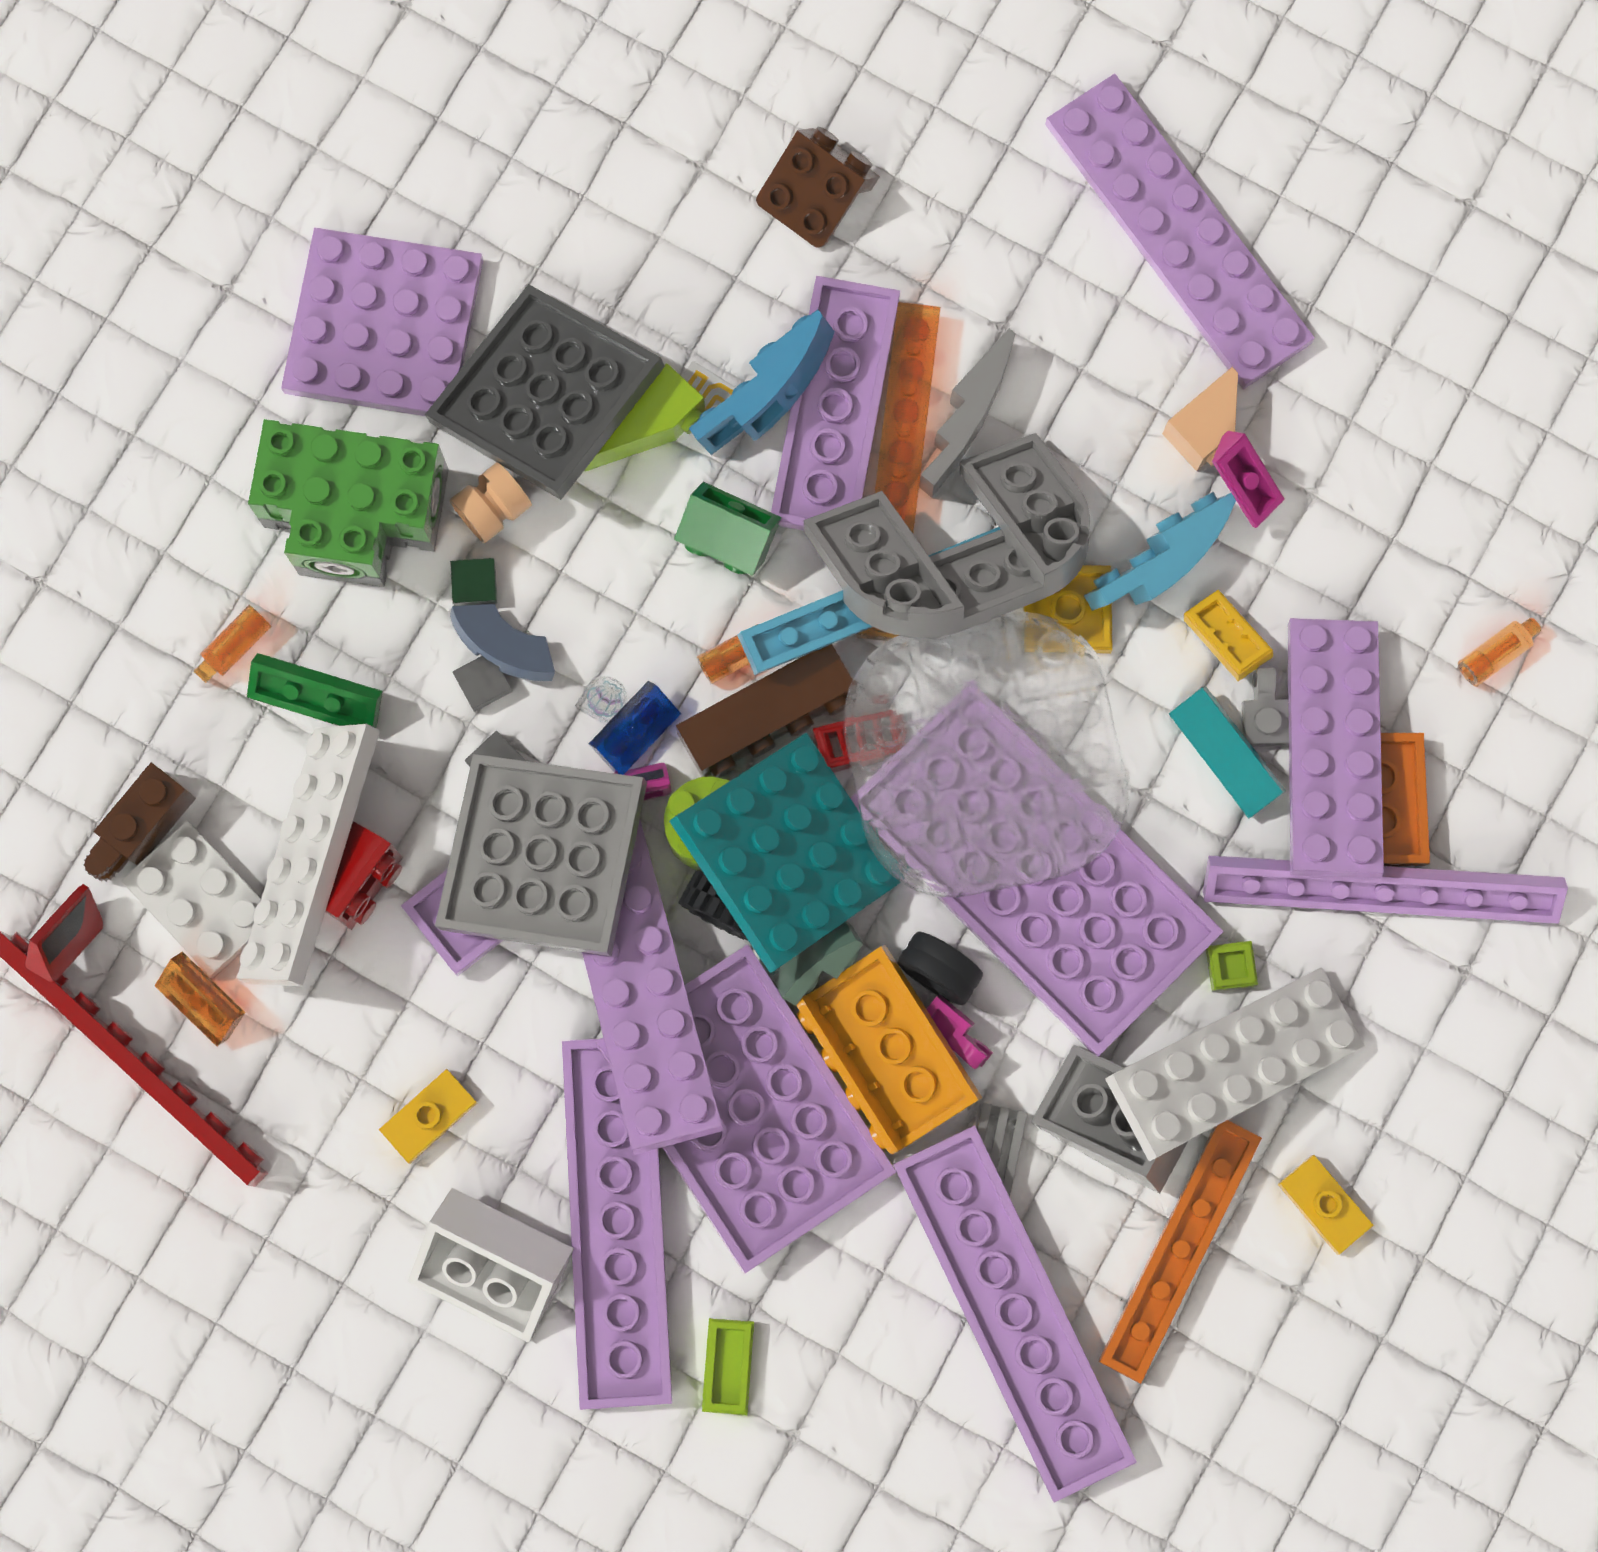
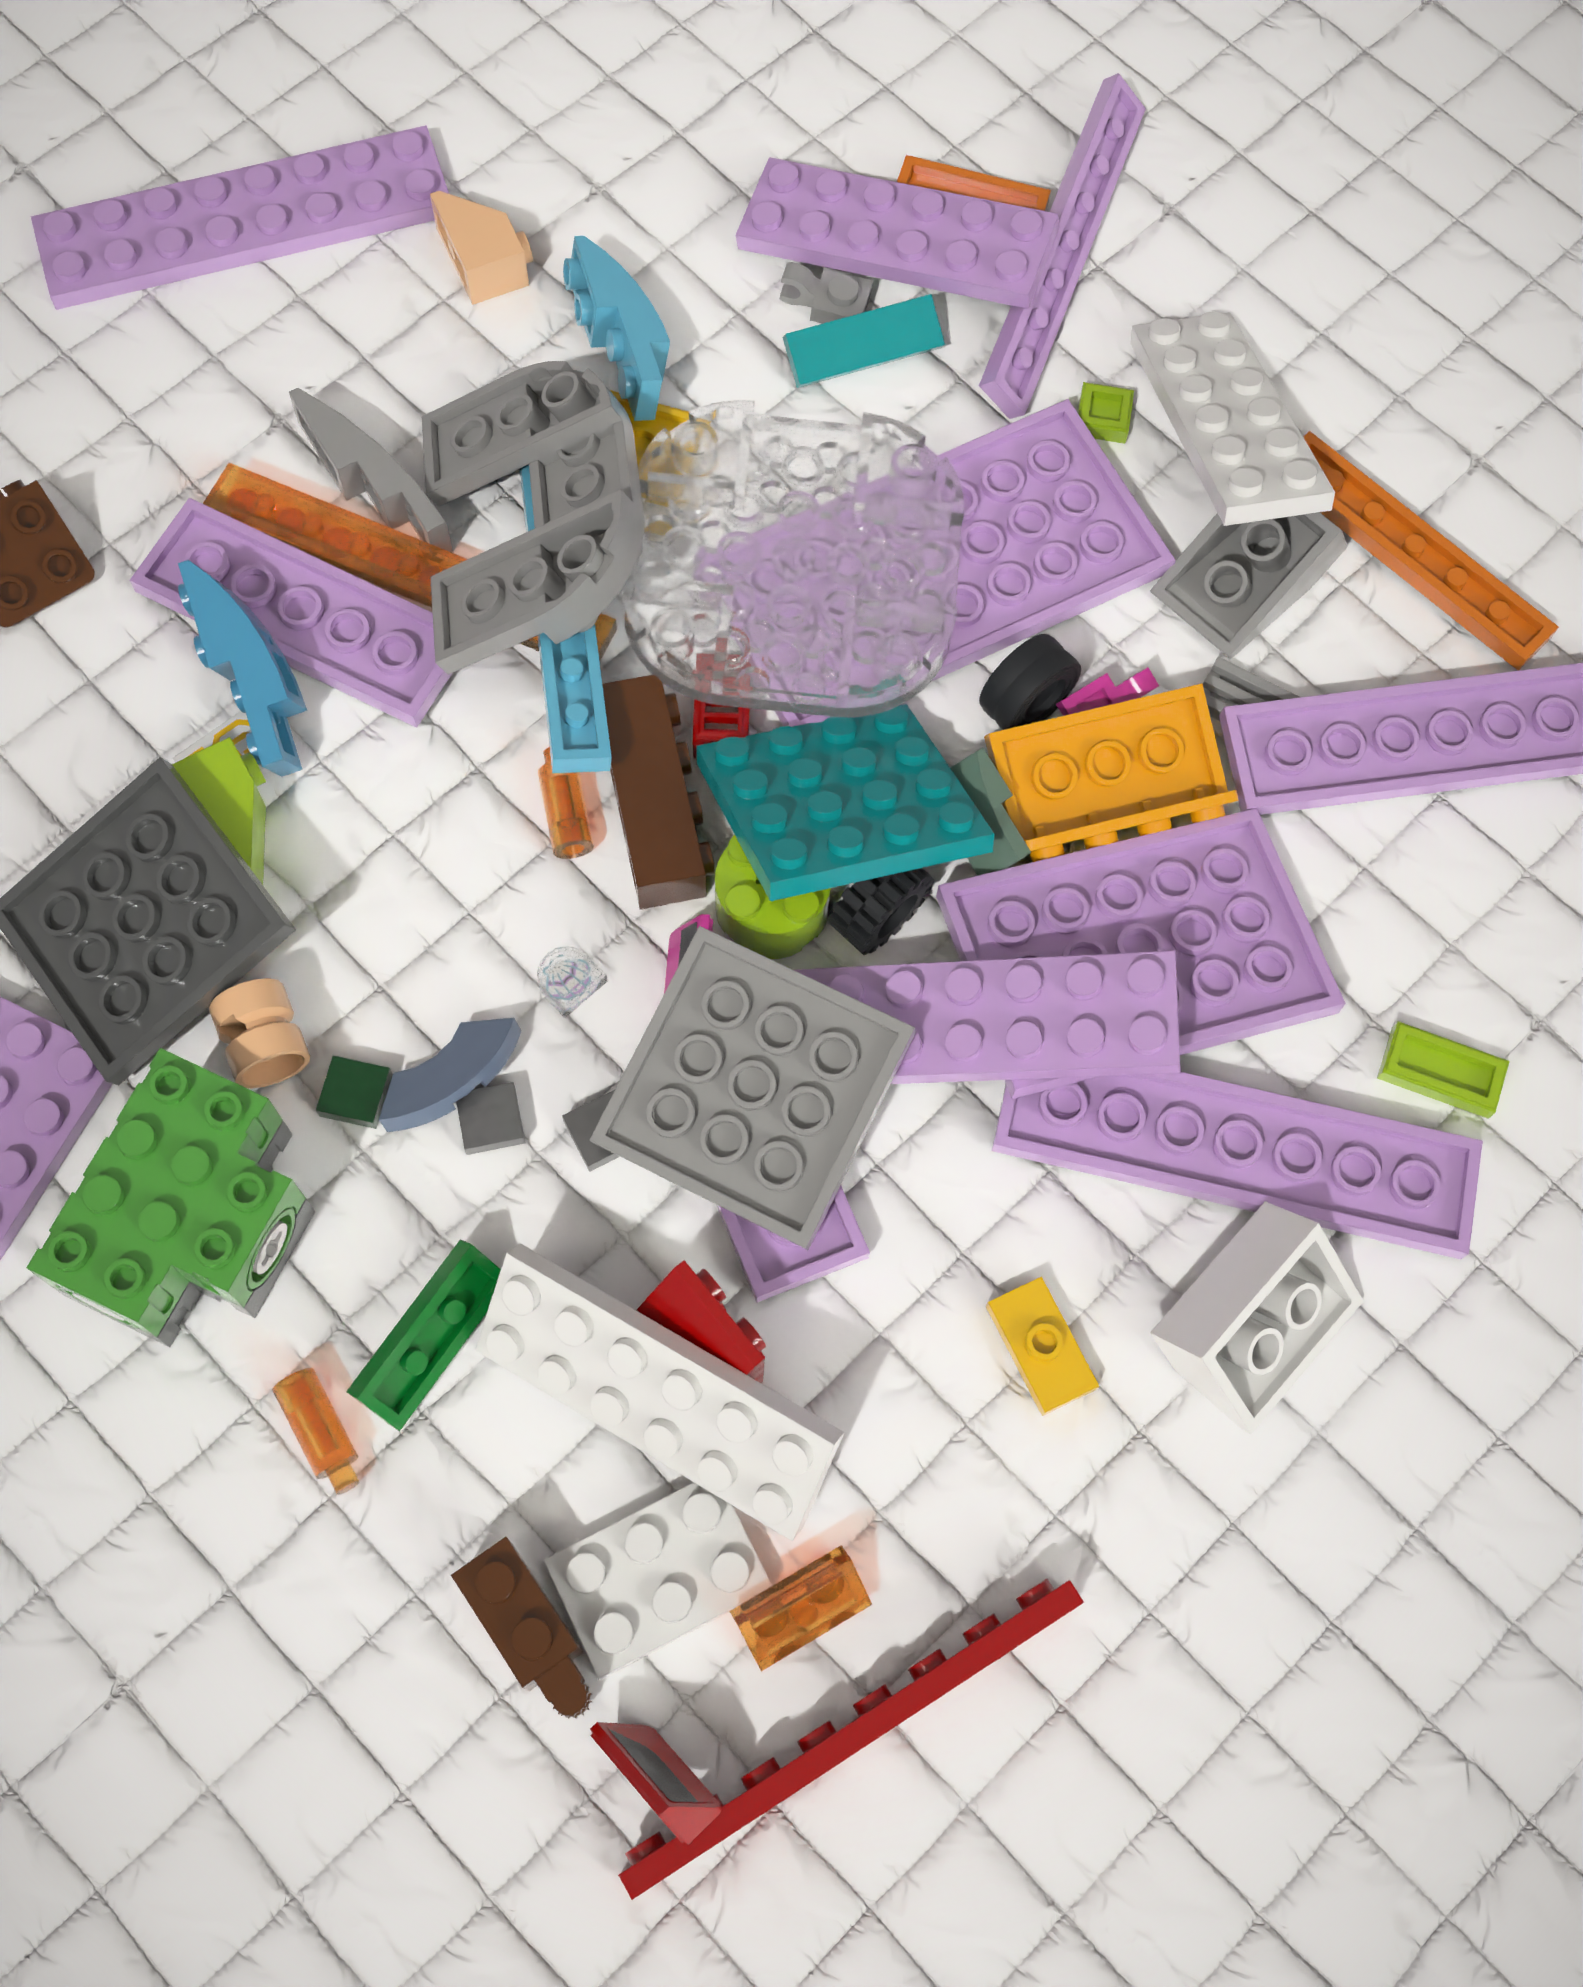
camera: 75 degrees left, 10 degrees down
(634, 728) = (619, 946): clear blue plate -> none
(727, 529) = (408, 764): brick -> none
(1228, 635) = (731, 300): yellow plate -> none
(1246, 477) = (560, 213): dark pink slope -> none
(1325, 1204) = (1392, 402): yellow plate -> none
(1498, 651) = (838, 72): clear orange cylinder -> none

